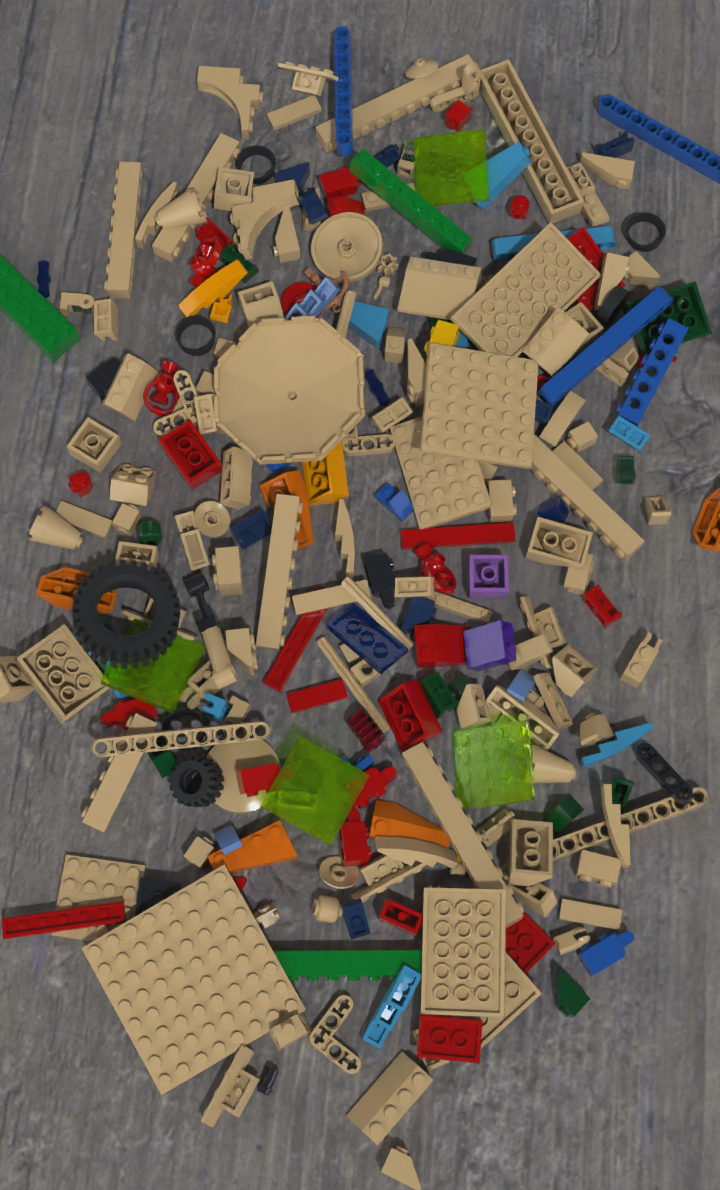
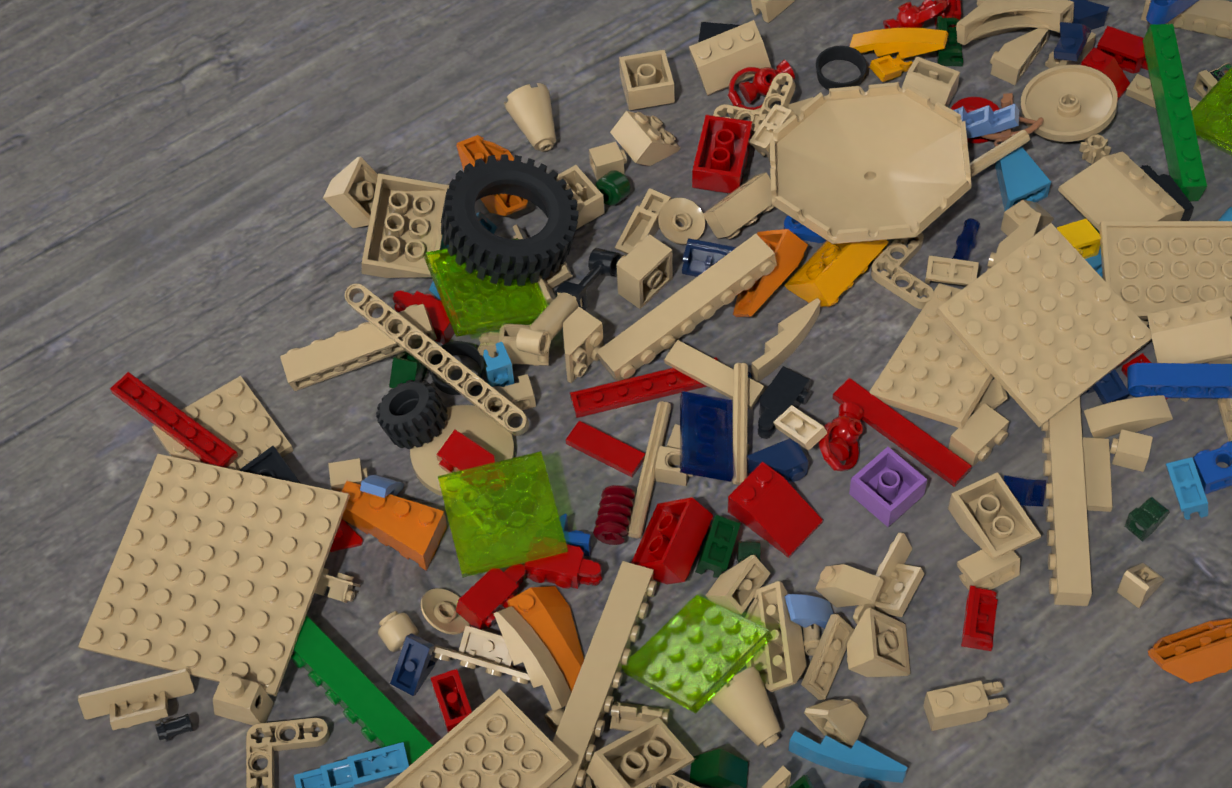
camera: 50 degrees right, 15 degrees down
(80, 484) = (601, 103): red plate -> none
(84, 520) = (571, 133): tan tile -> none
(383, 282) = (1075, 161): tan hand -> none
(389, 155) = (1196, 63): dark blue hinge -> none
(395, 501) = (871, 350): blue slope -> none
(461, 608) = (829, 492): tan piece -> none
(490, 645) = (816, 544): brick -> none

